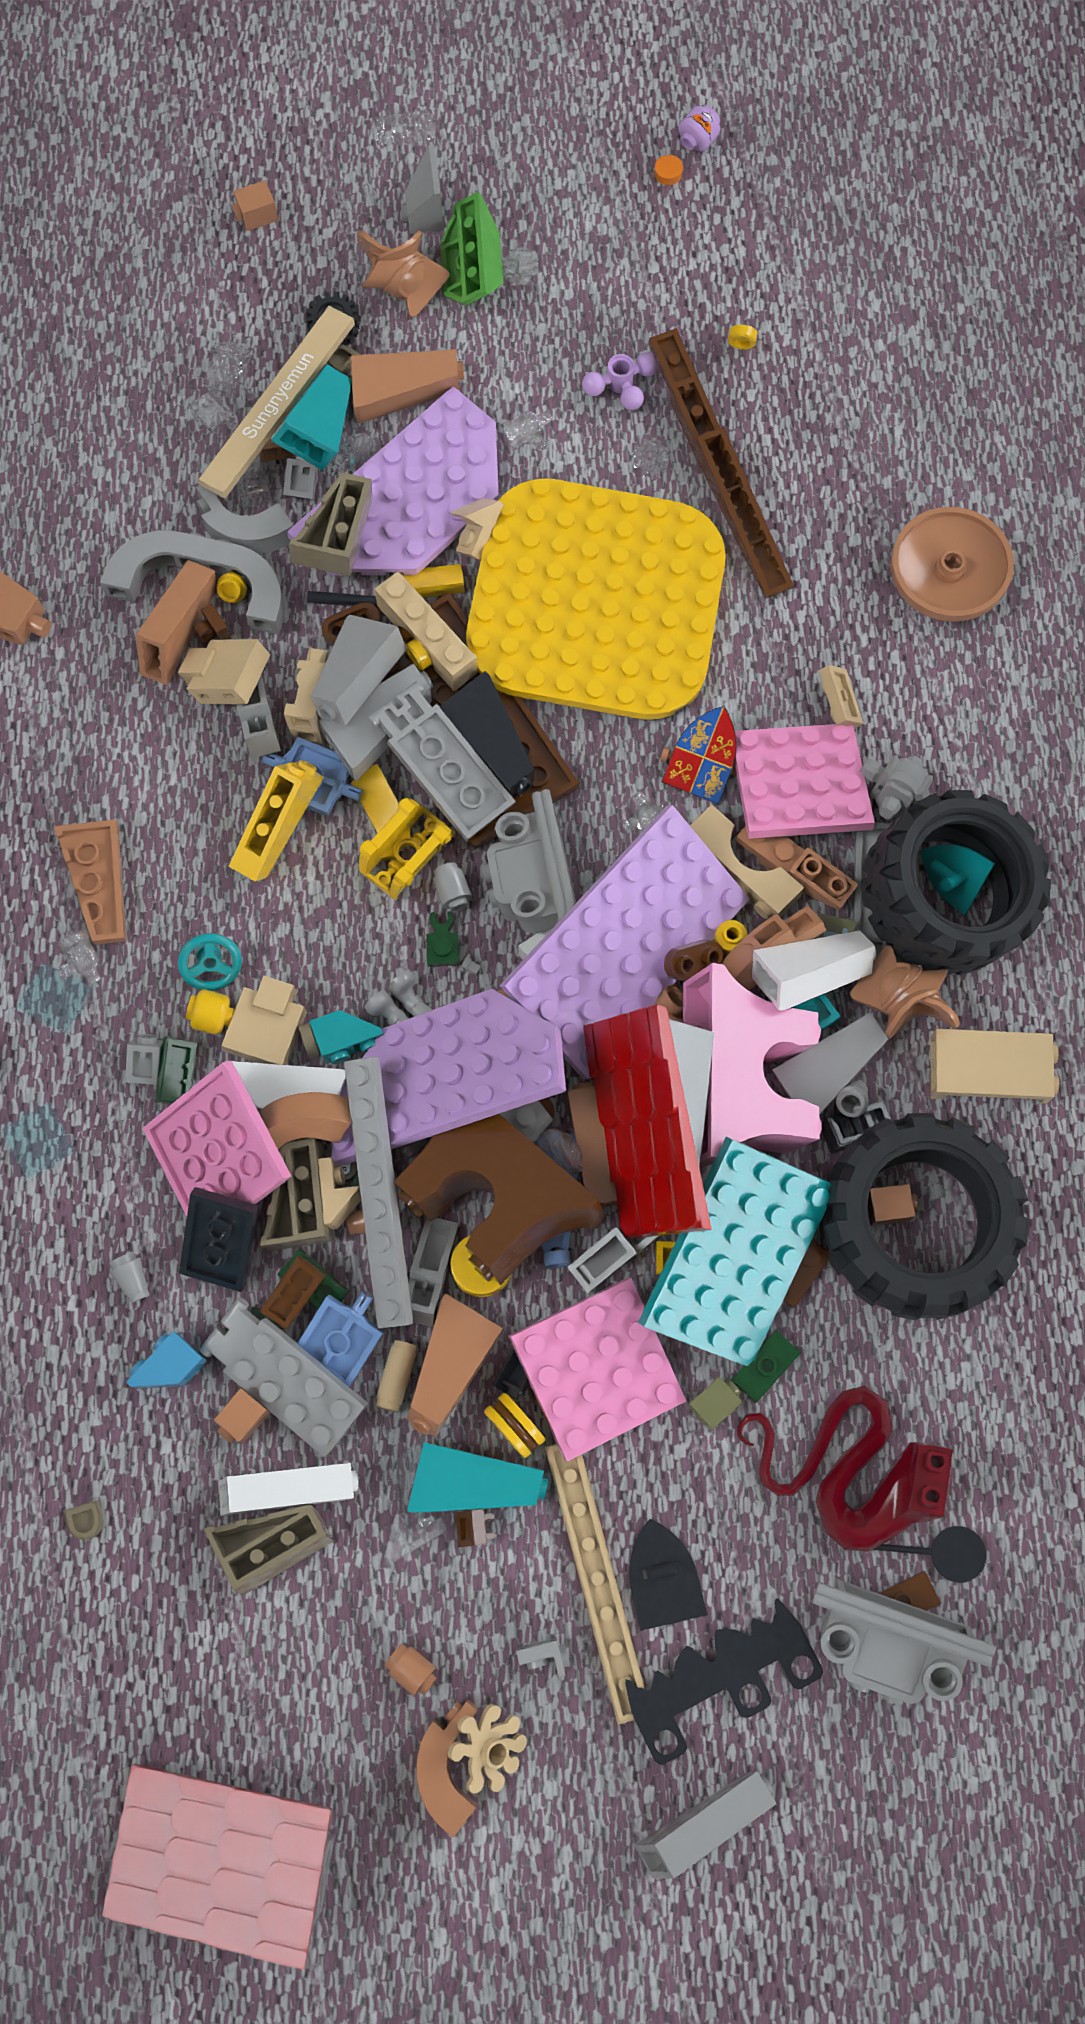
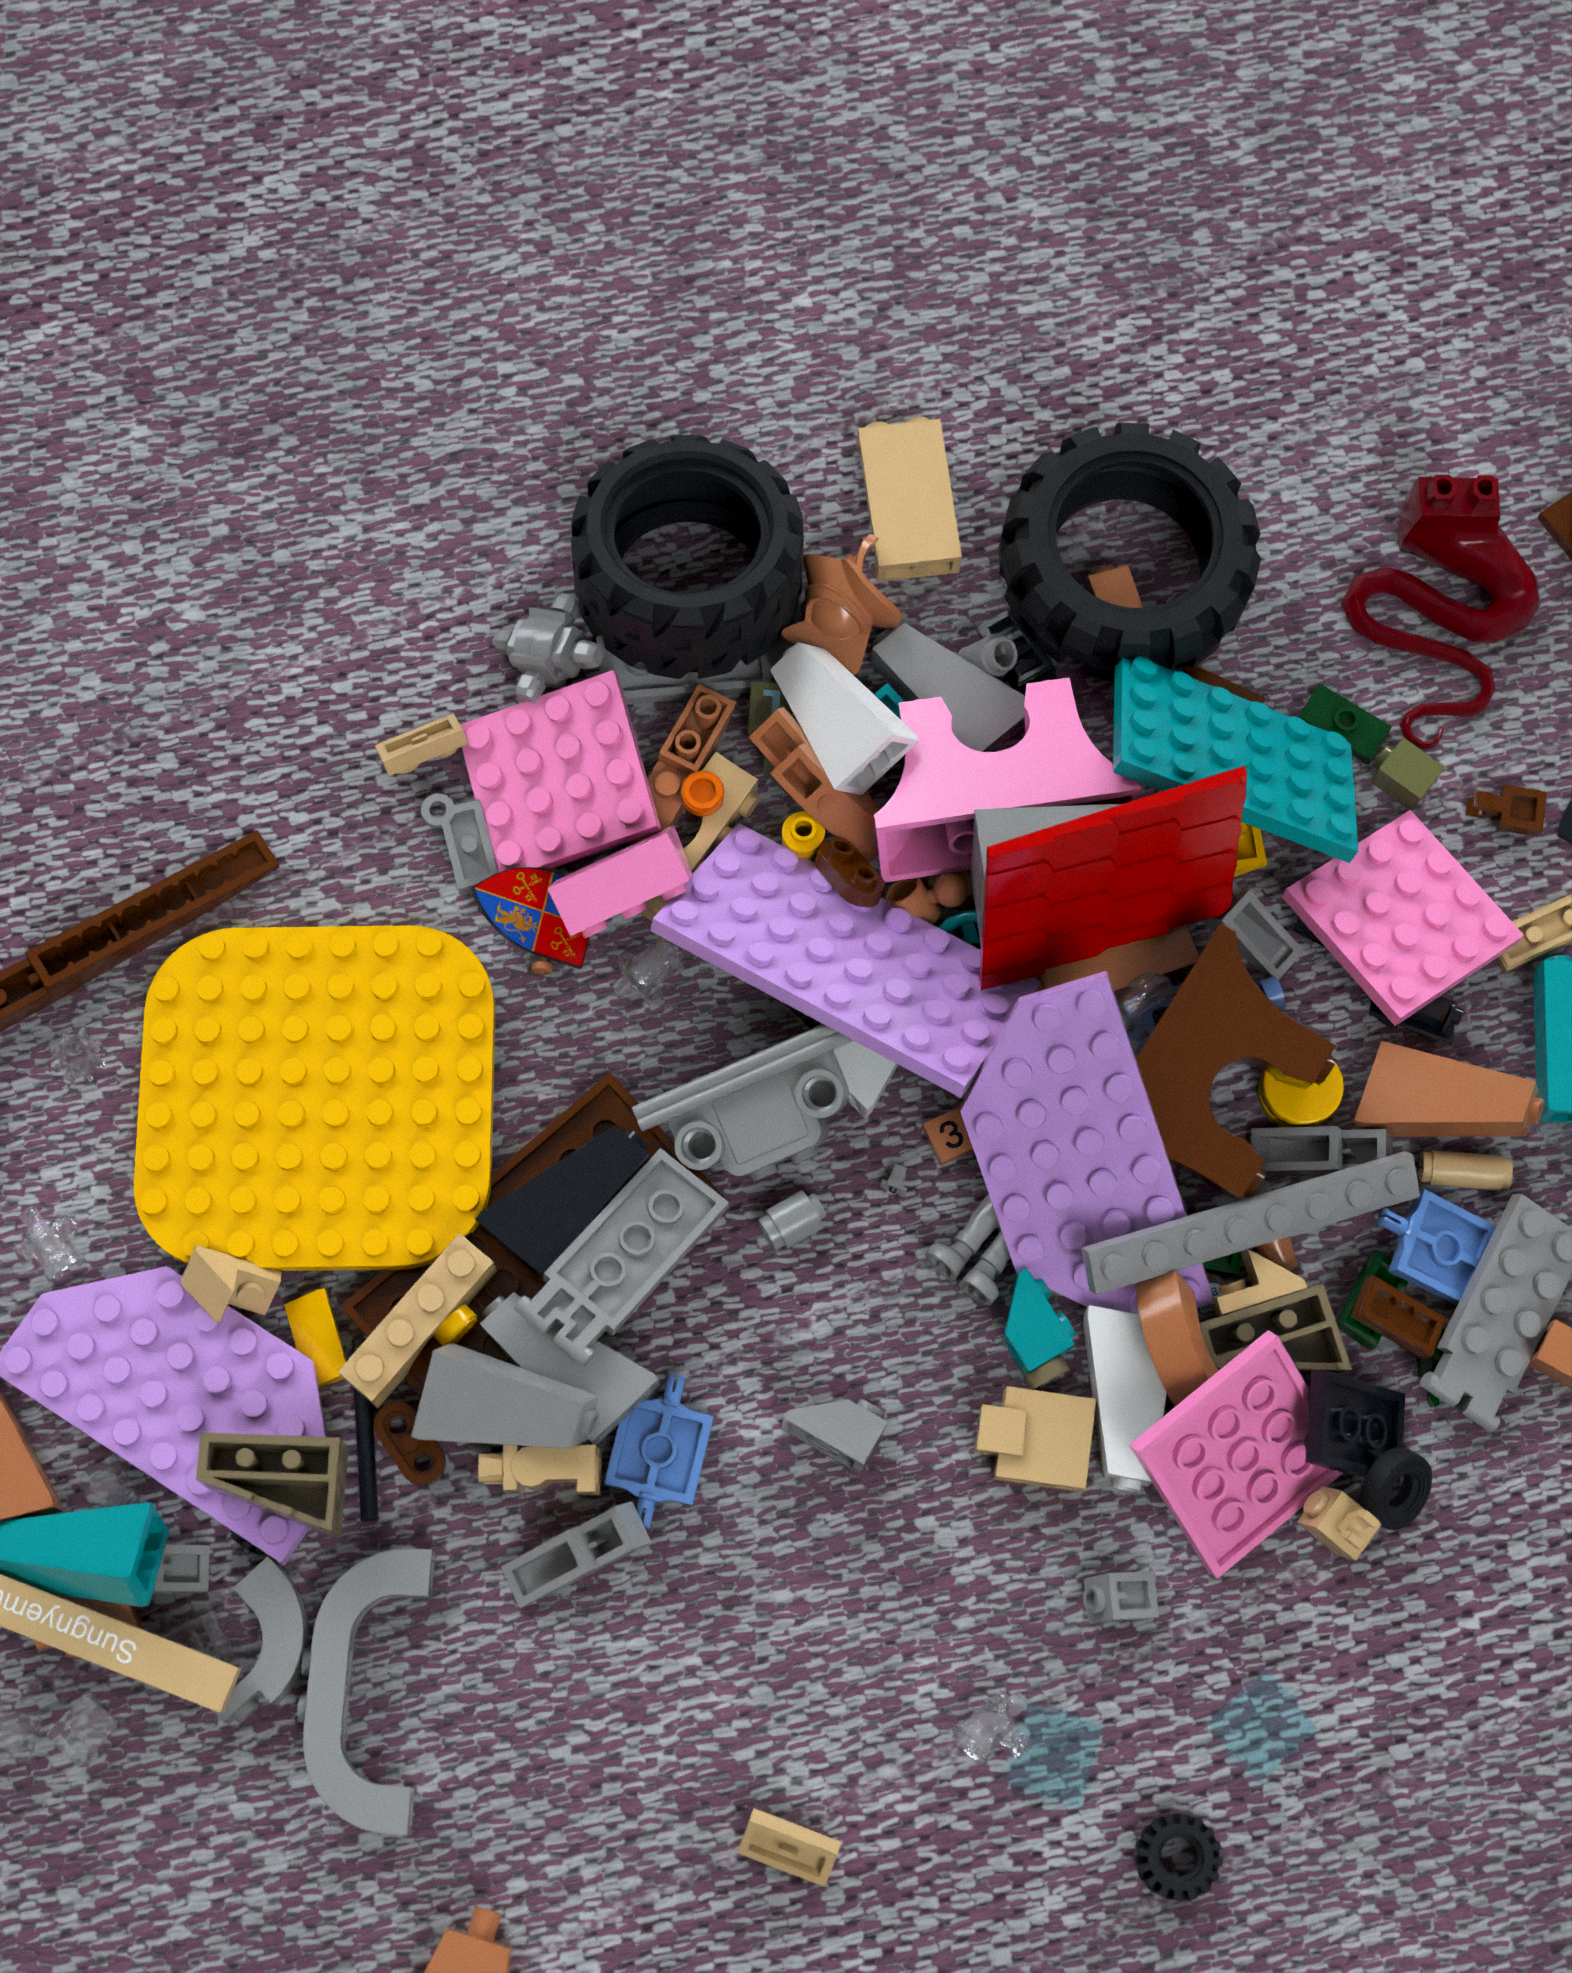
camera: 105 degrees left, 0 degrees up
(31, 822) = (789, 1847): none -> tan plate
(96, 874) = (855, 1738): nougat wing -> none
(130, 1276) = (1418, 1548): light grey cone -> none
(158, 1217) = (1338, 1522): none -> tan brick
(168, 1366) = (1527, 1465): dark azure slope -> none
(172, 621) = (445, 1705): nougat slope -> none
(175, 1070) = (1131, 1548): plate -> none
(182, 1255) = (1413, 1492): none -> black tyre
(209, 949) = (963, 1536): teal piece -> none
(209, 1011) = (1037, 1518): yellow head -> none
(212, 626) = (443, 1648): reddish brown tile -> none
(224, 670) = (522, 1609): tan piece -> none
(231, 587) = (376, 1637): yellow plate -> none
(275, 818) = (743, 1479): yellow slope -> none
(295, 887) = (838, 1430): none -> light grey slope
(377, 797) = (680, 1347): yellow slope -> none
(393, 838) = (757, 1267): yellow piece -> none
(442, 945) = (876, 1221): dark green plate -> none
(514, 1425) = (1496, 1006): yellow head -> none
(673, 1486) = (1516, 809): none -> reddish brown plate
(709, 798) = (622, 883): none -> bright pink slope
(765, 715) = (465, 839): none -> light grey hinge
(771, 871) = (702, 793): none -> orange tile
(952, 564) = (200, 621): nougat dish -> none
(955, 1553) = (1518, 485): black piece -> none
(956, 873) = (662, 556): teal shield -> none

